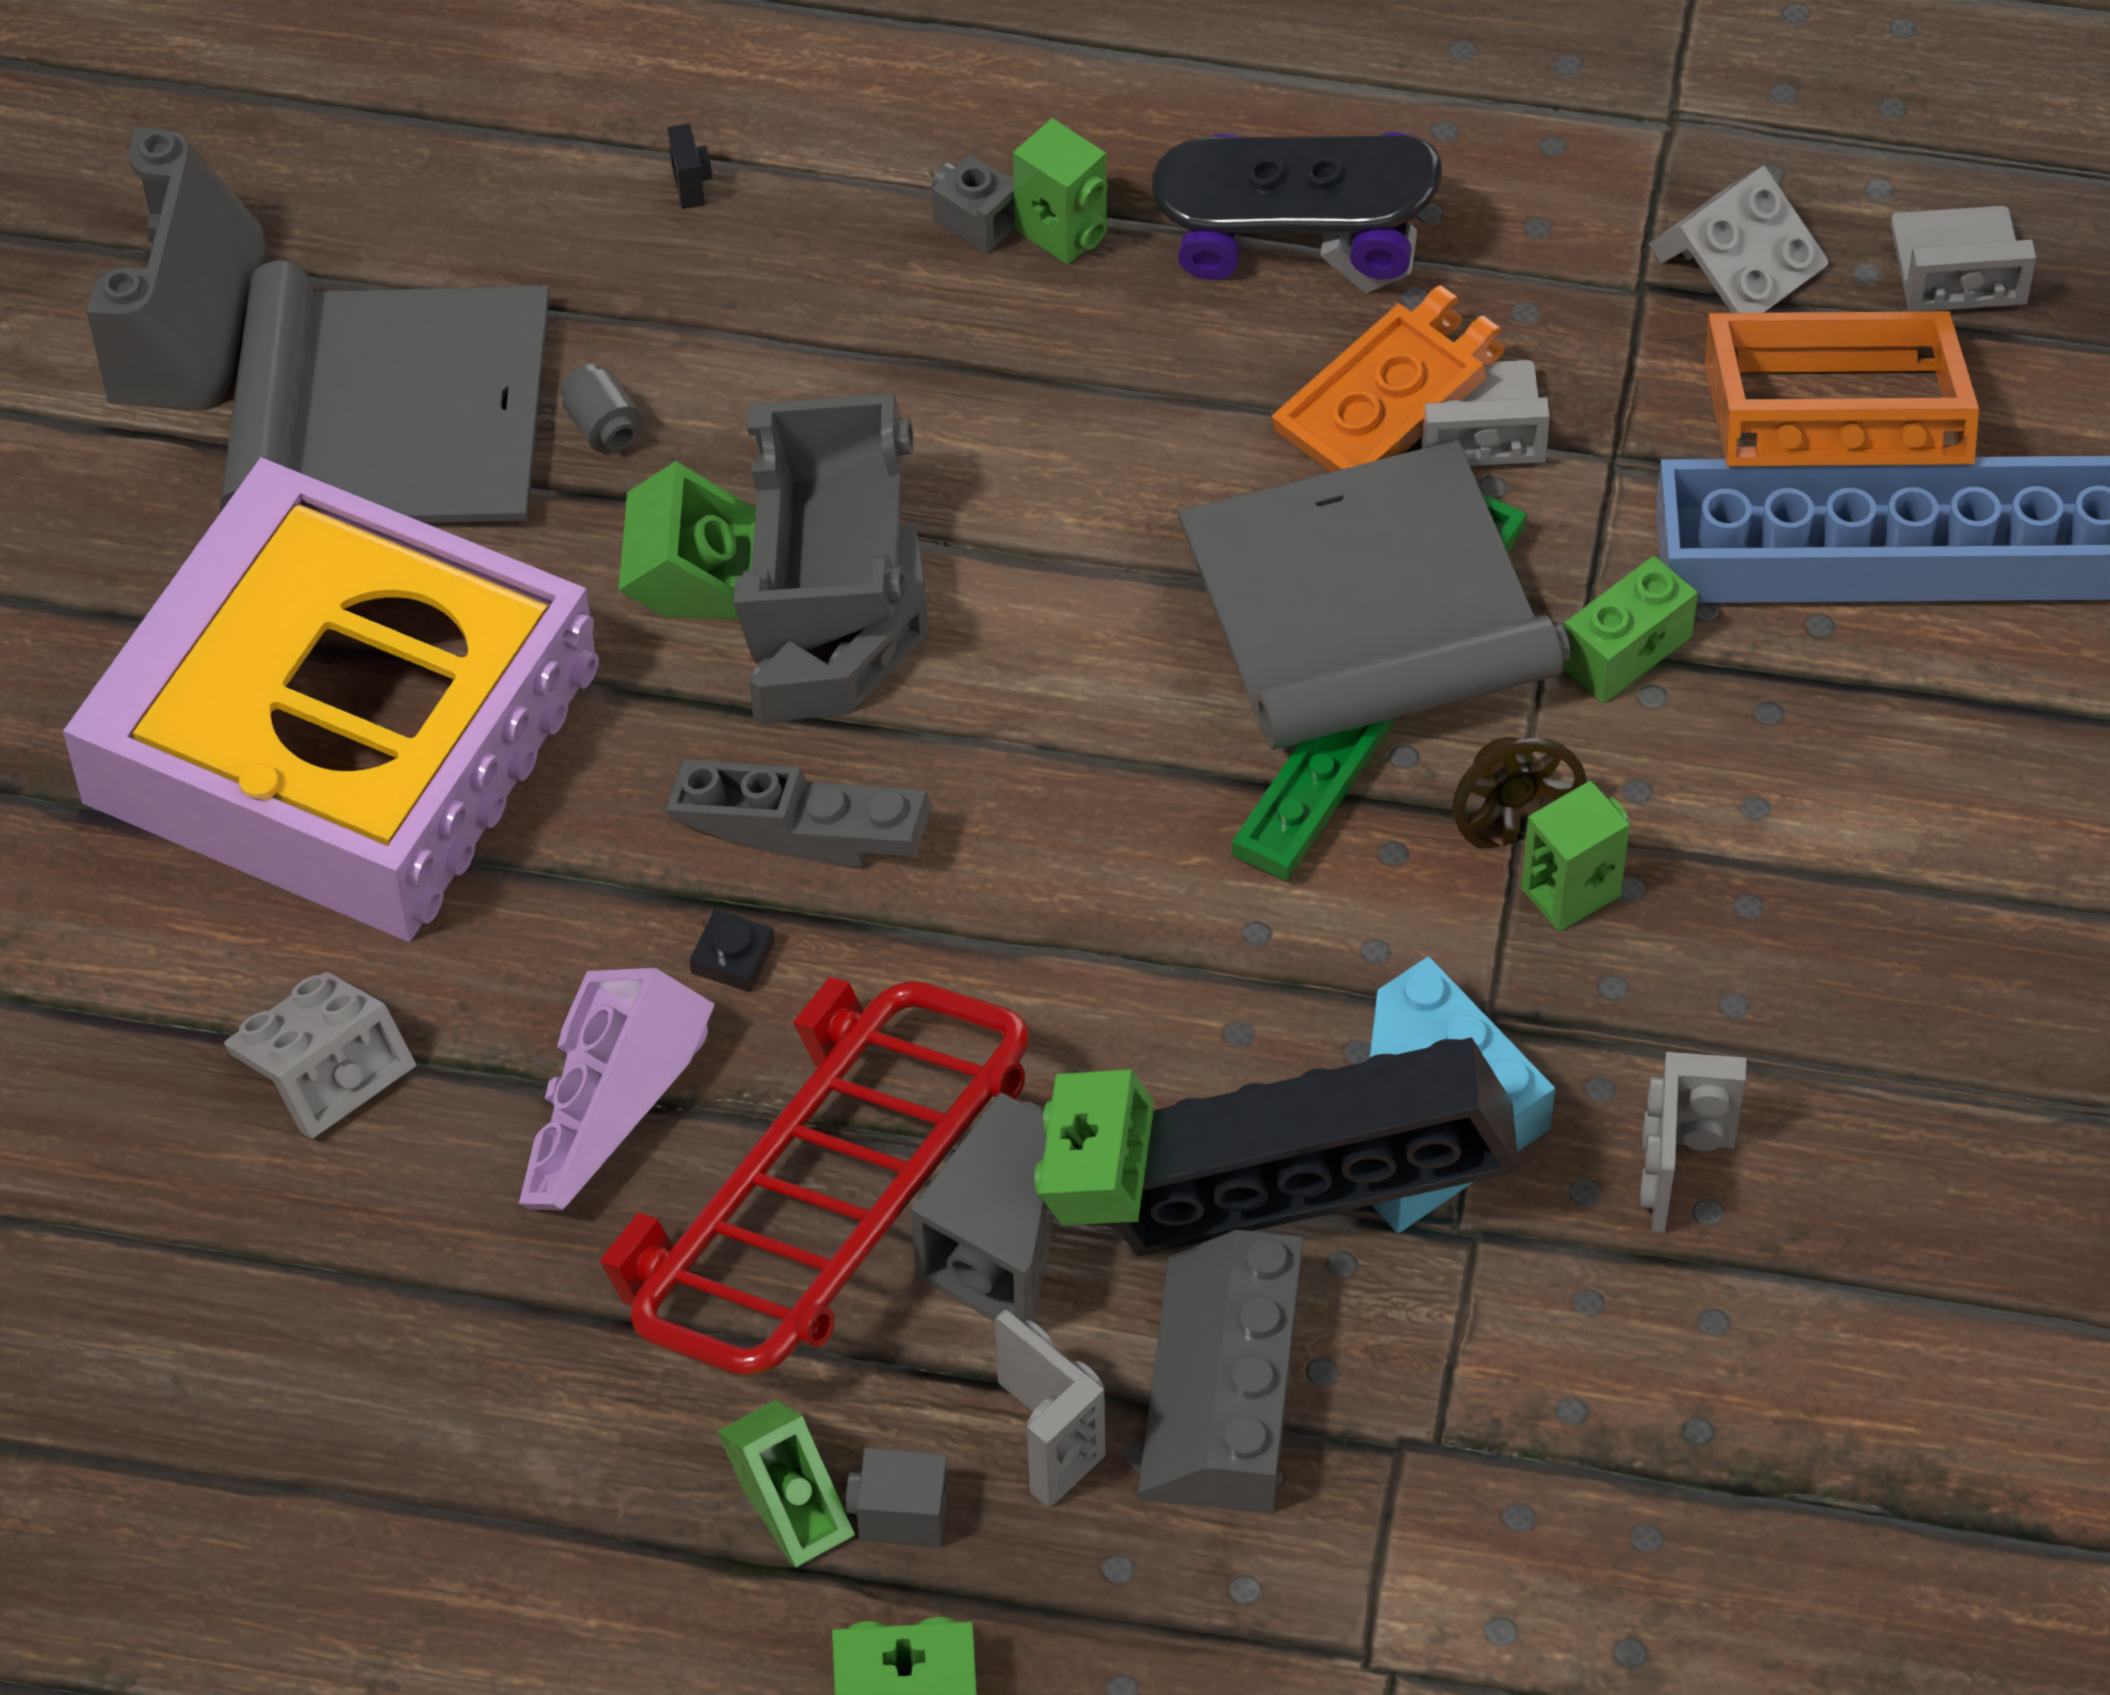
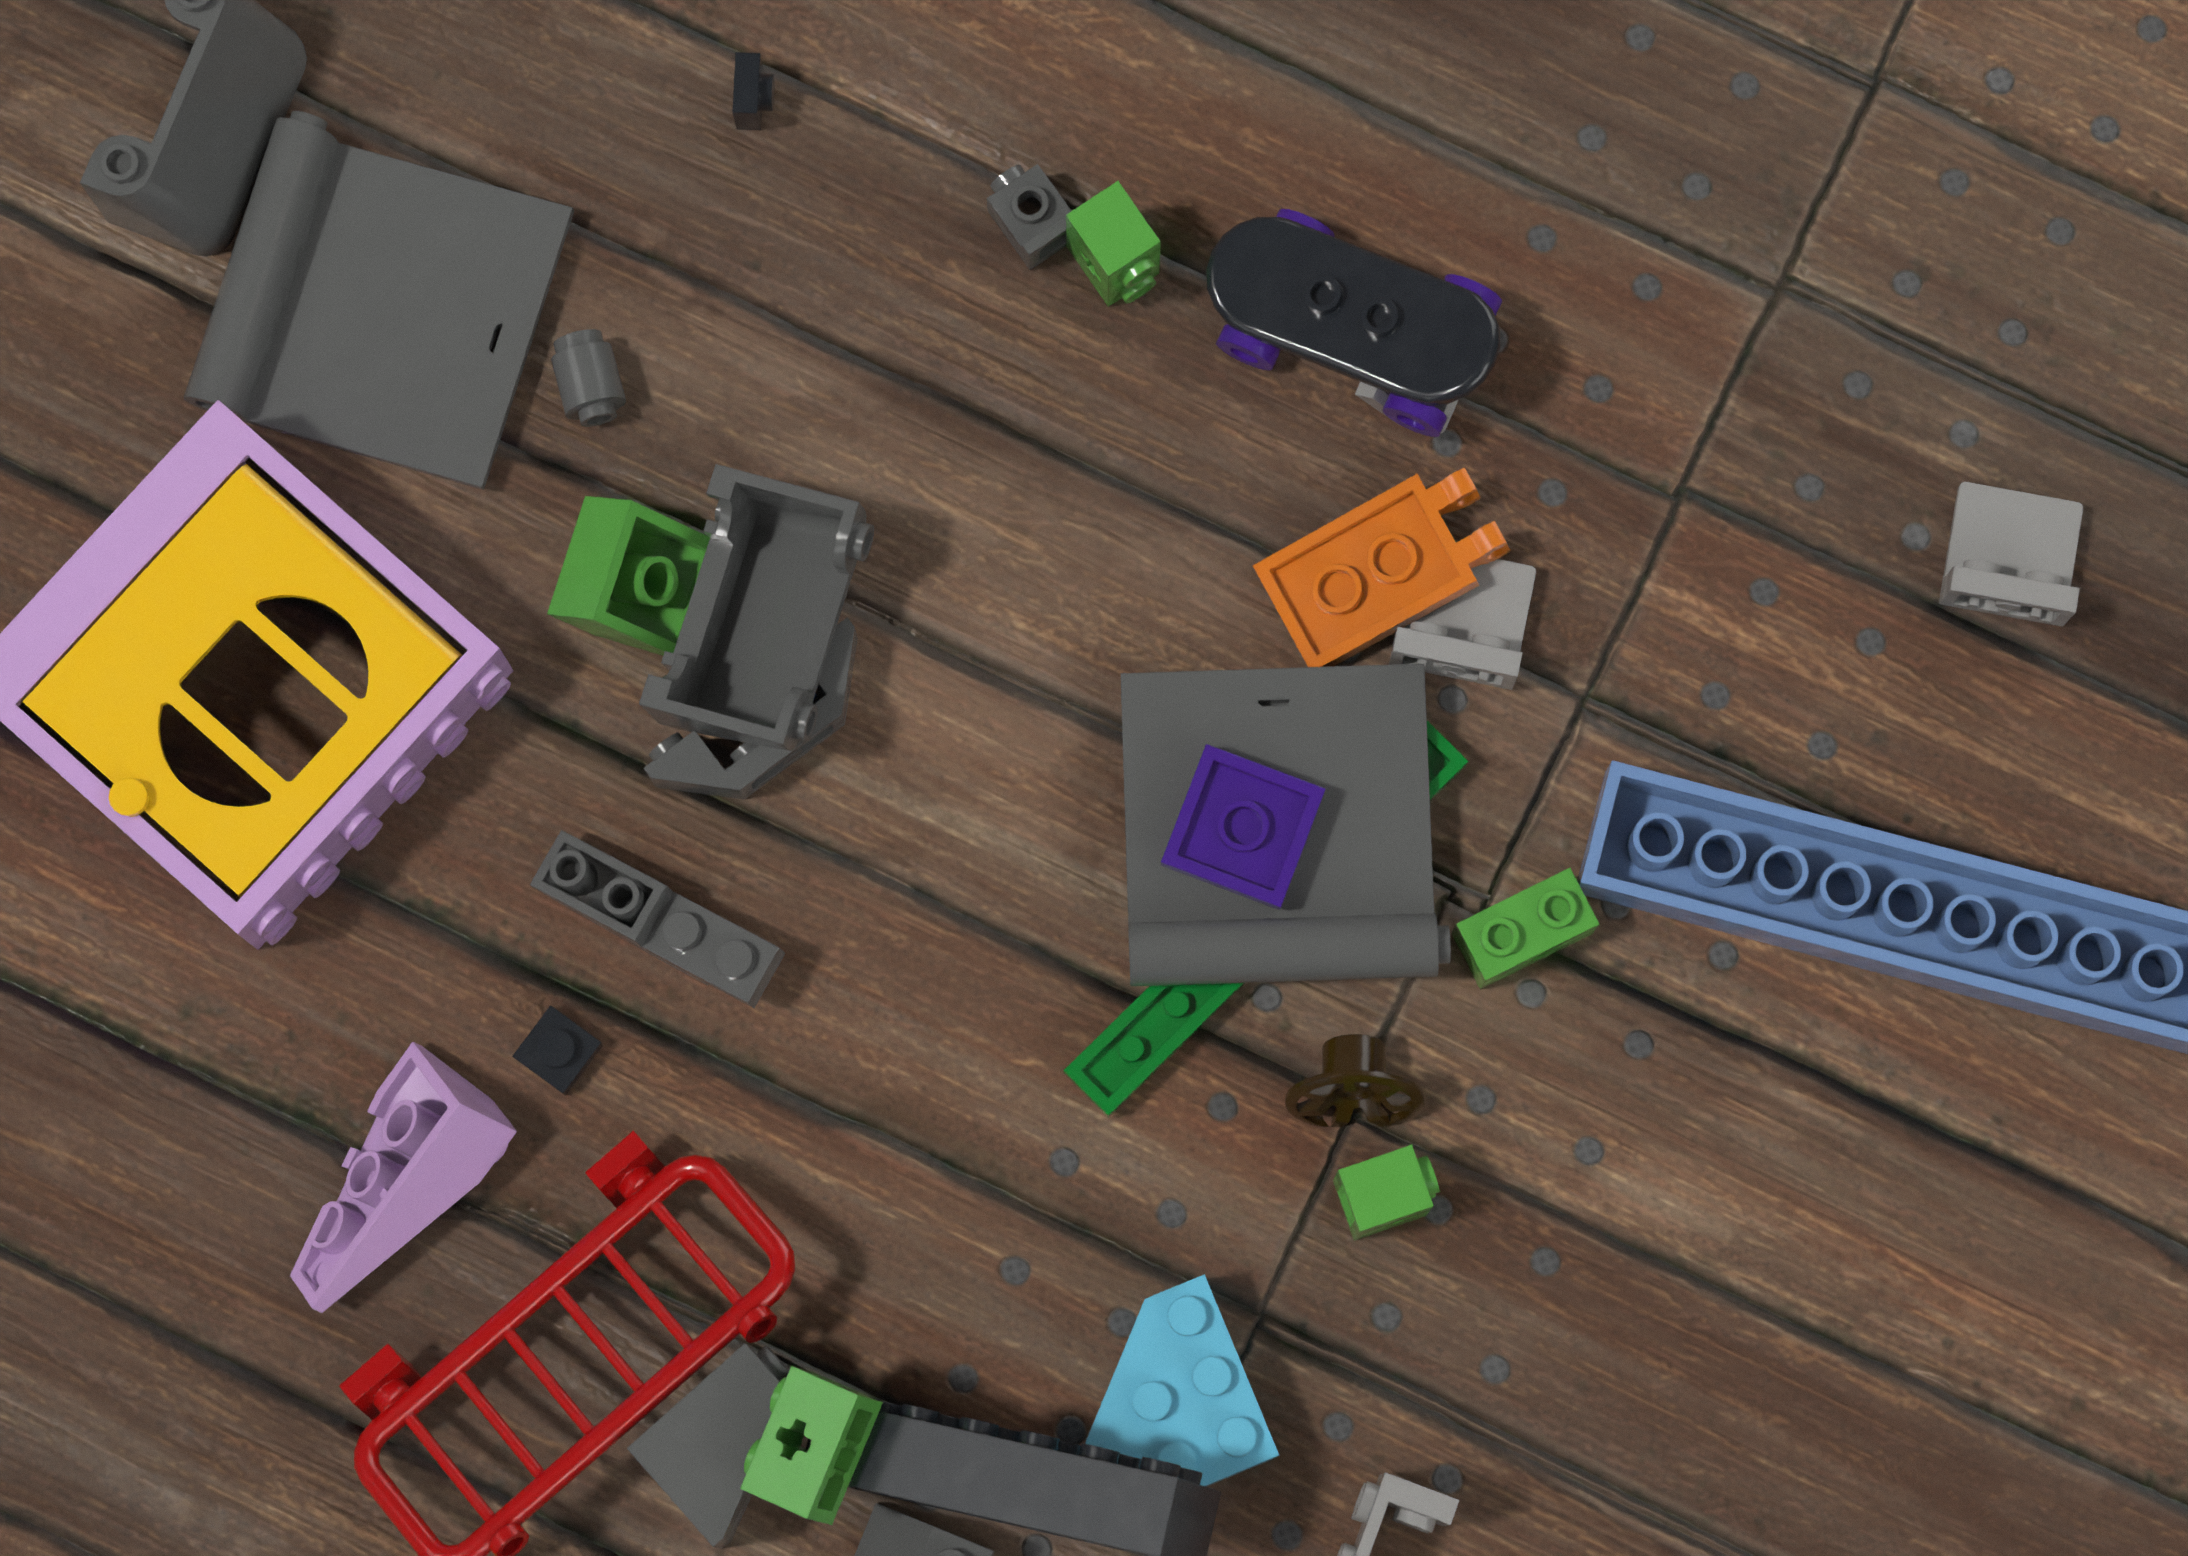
camera: 15 degrees right, 25 degrees up
(324, 1050) = (139, 1061): light grey bracket -> none
(1336, 592) = (1242, 827): none -> dark purple plate
(1746, 244) = (1795, 480): light grey bracket -> none
(1840, 429) = (1799, 790): orange window -> none

